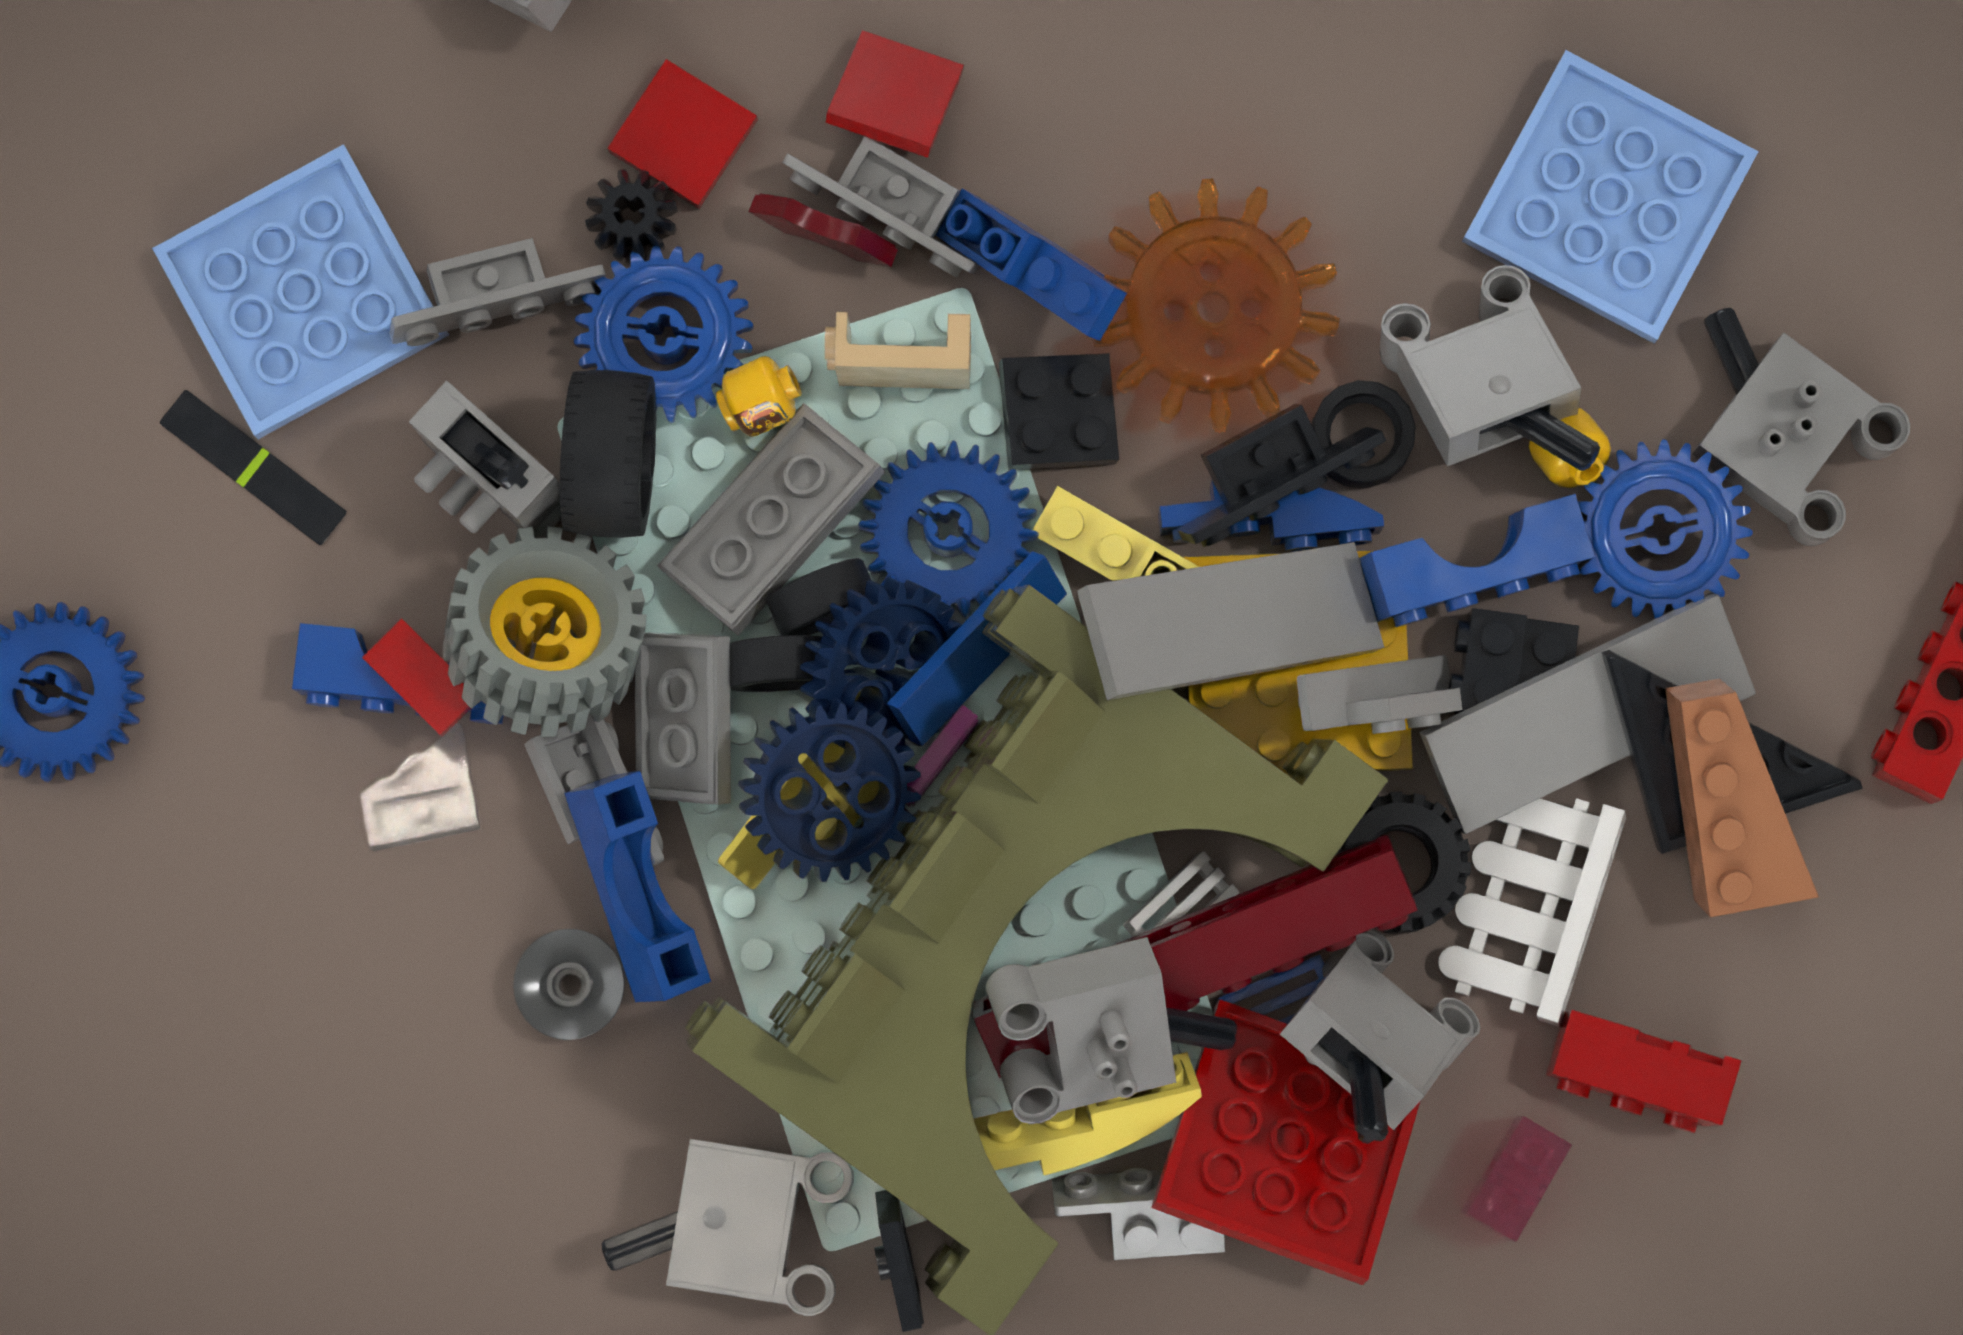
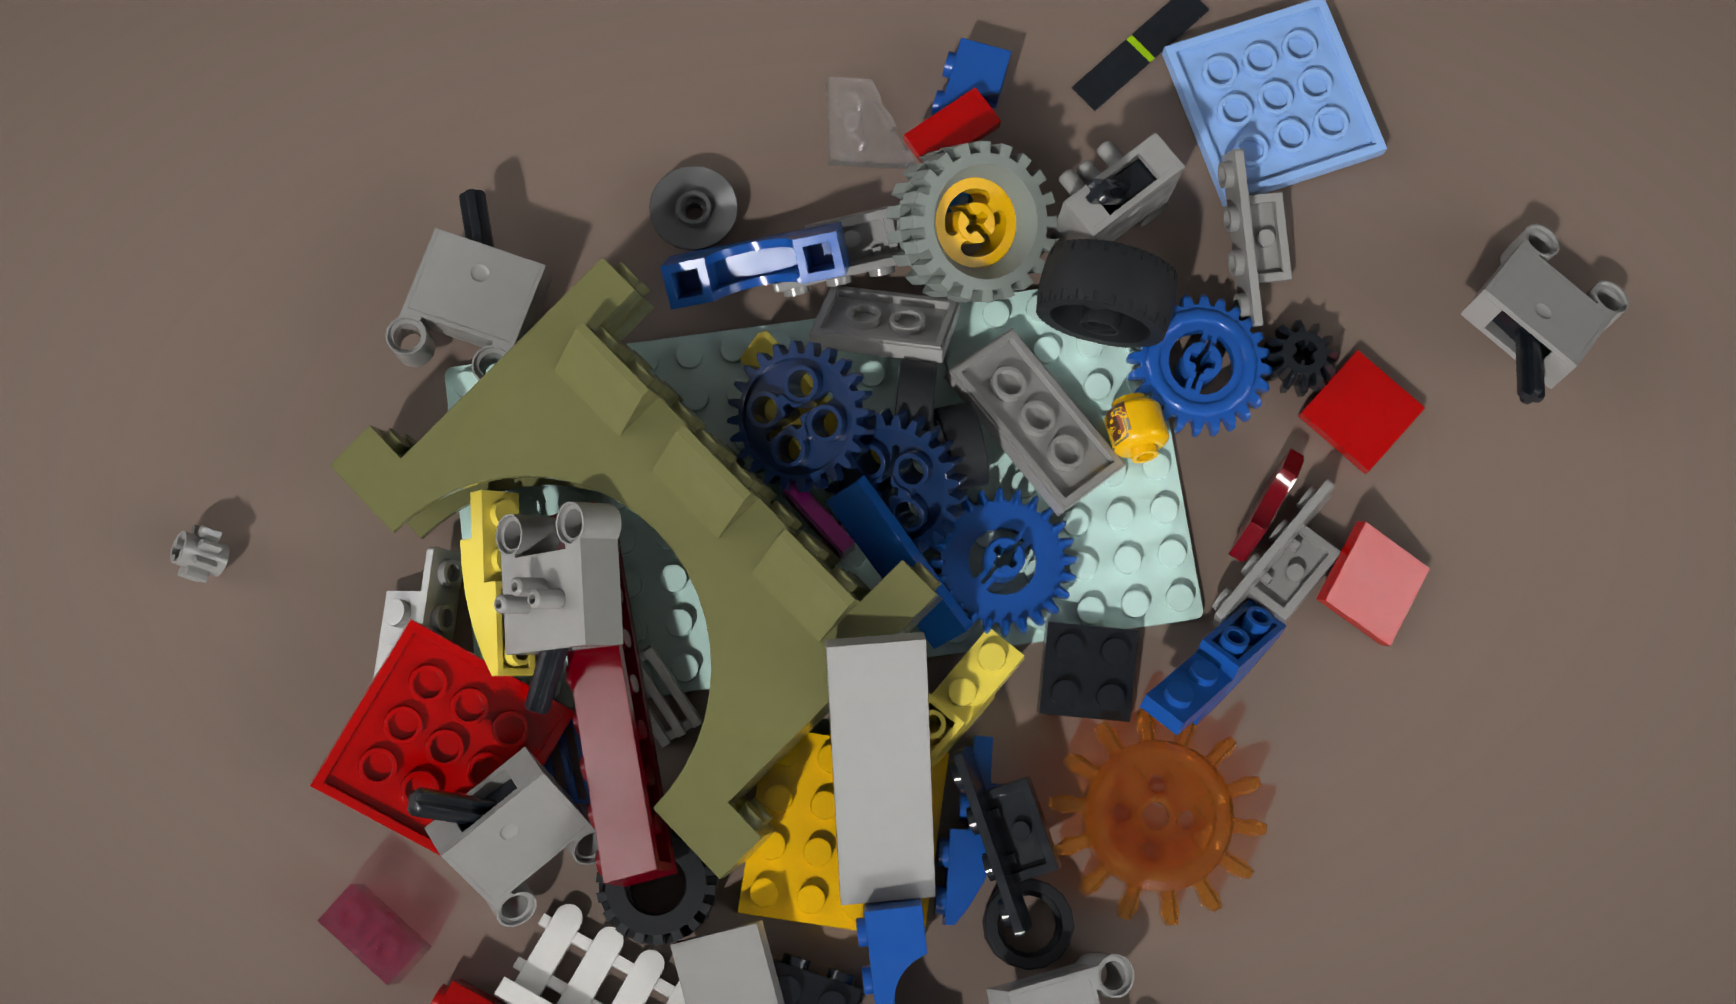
camera: 90 degrees right, 5 degrees down
(896, 1261) = (405, 412): black plate -> none
(901, 365) = (1138, 583): tan panel -> none
(1379, 695) = (797, 889): light grey bracket -> none

